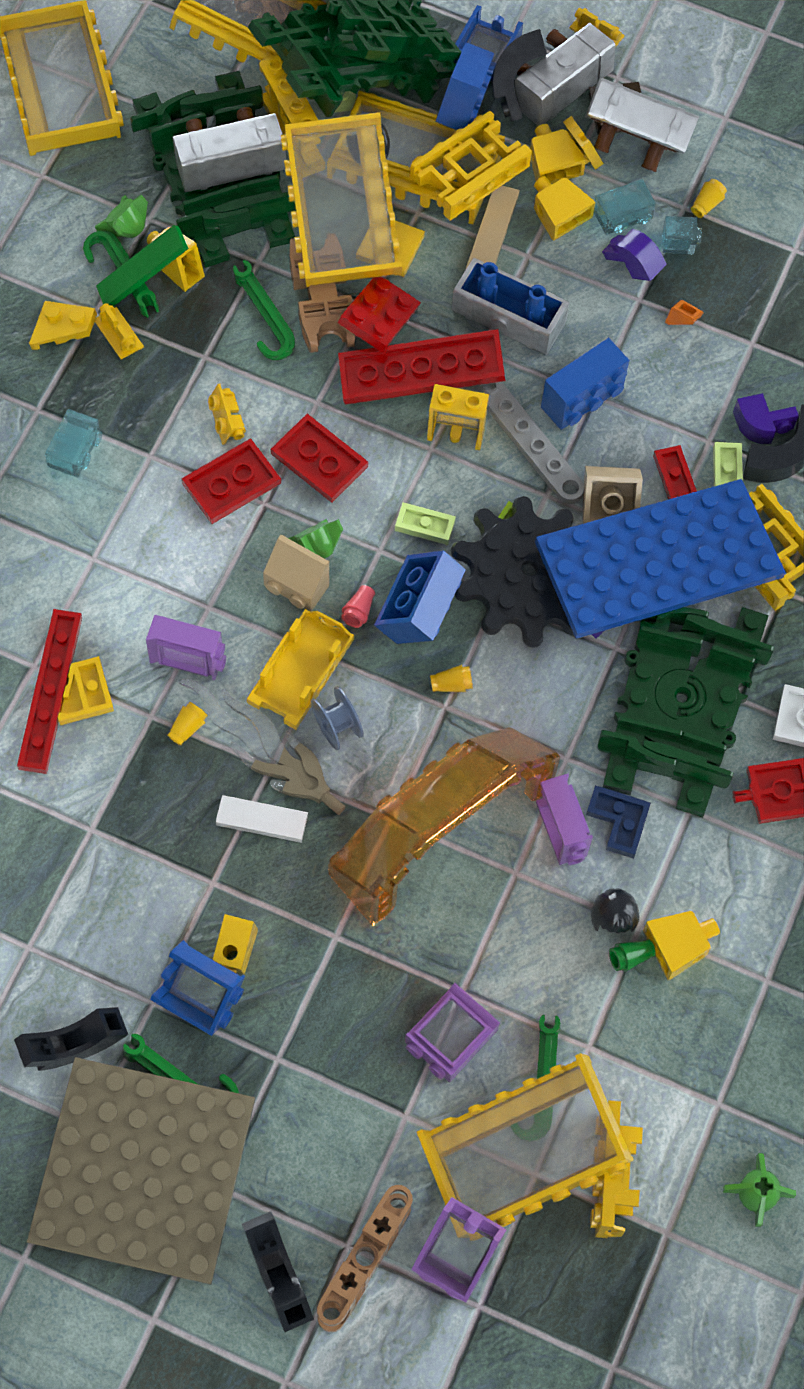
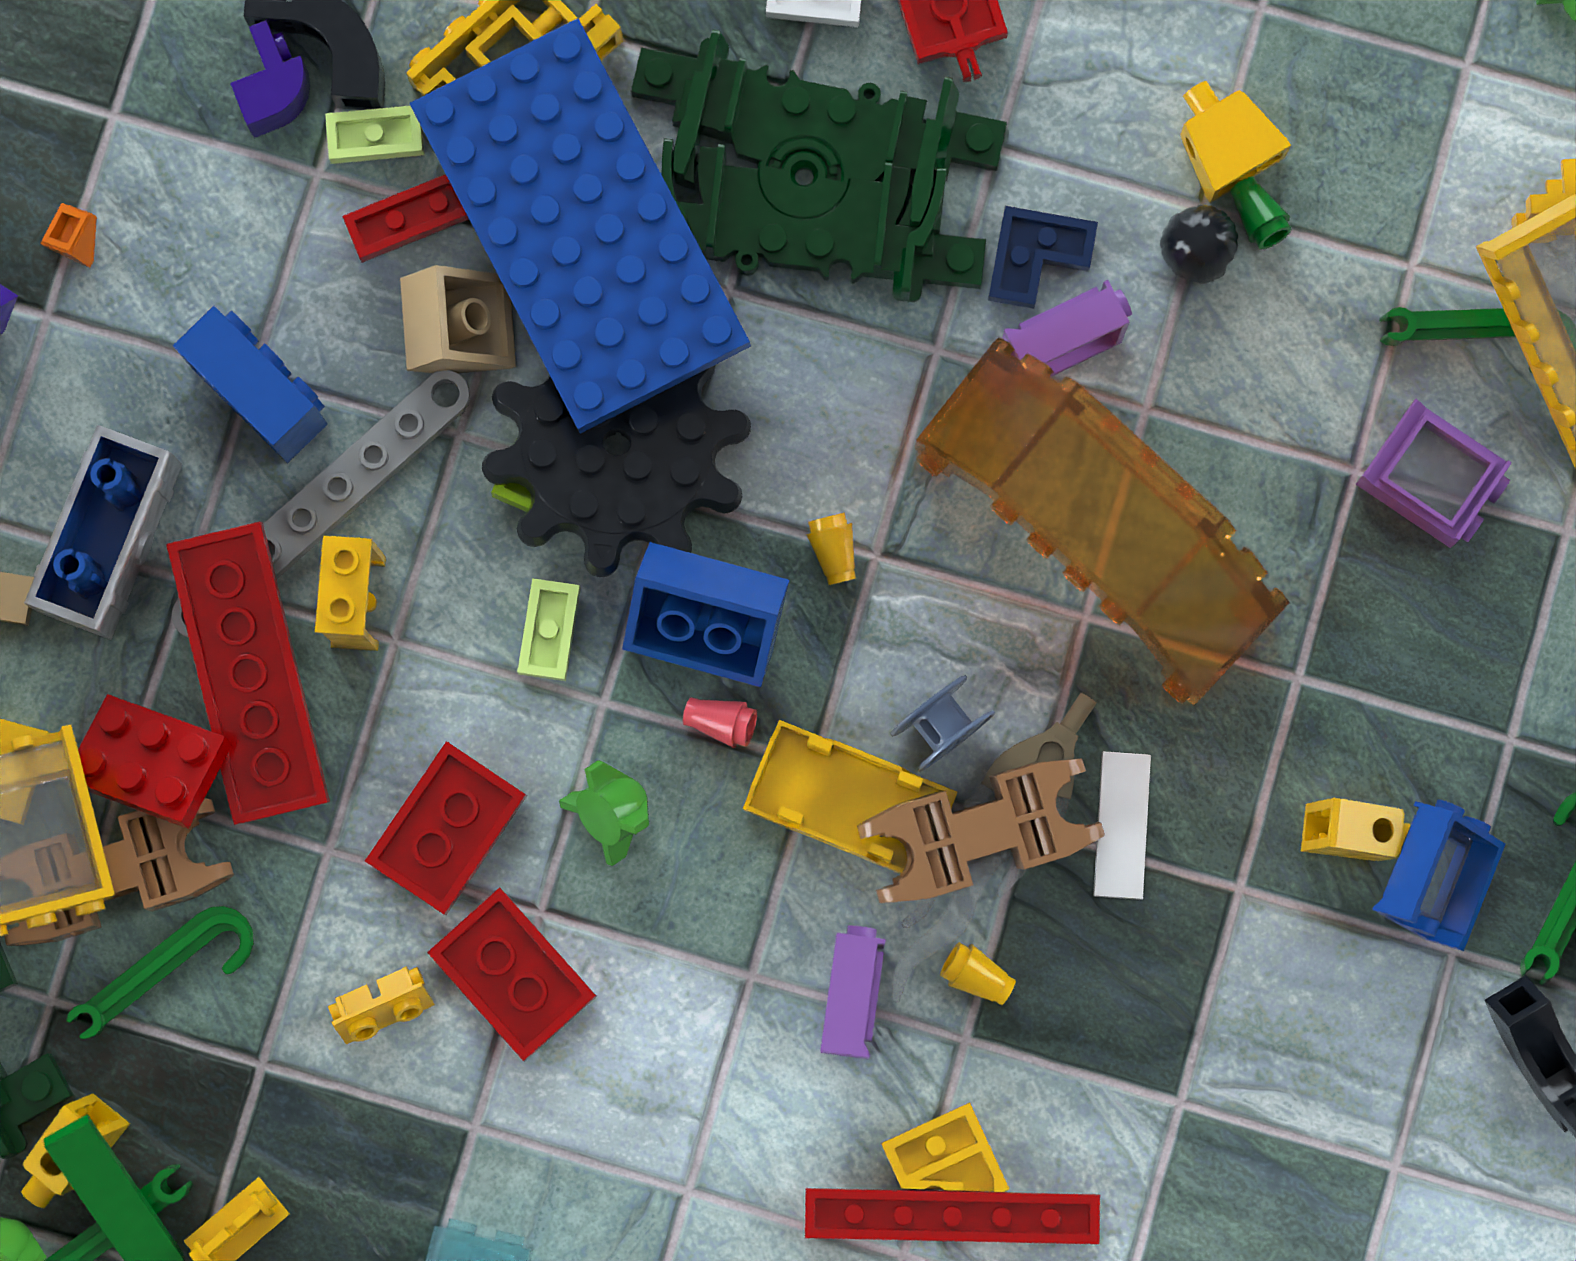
camera: 90 degrees left, 15 degrees up
(273, 752) = (944, 840): none -> medium nougat piece
(296, 574) = (688, 831): tan slope -> none

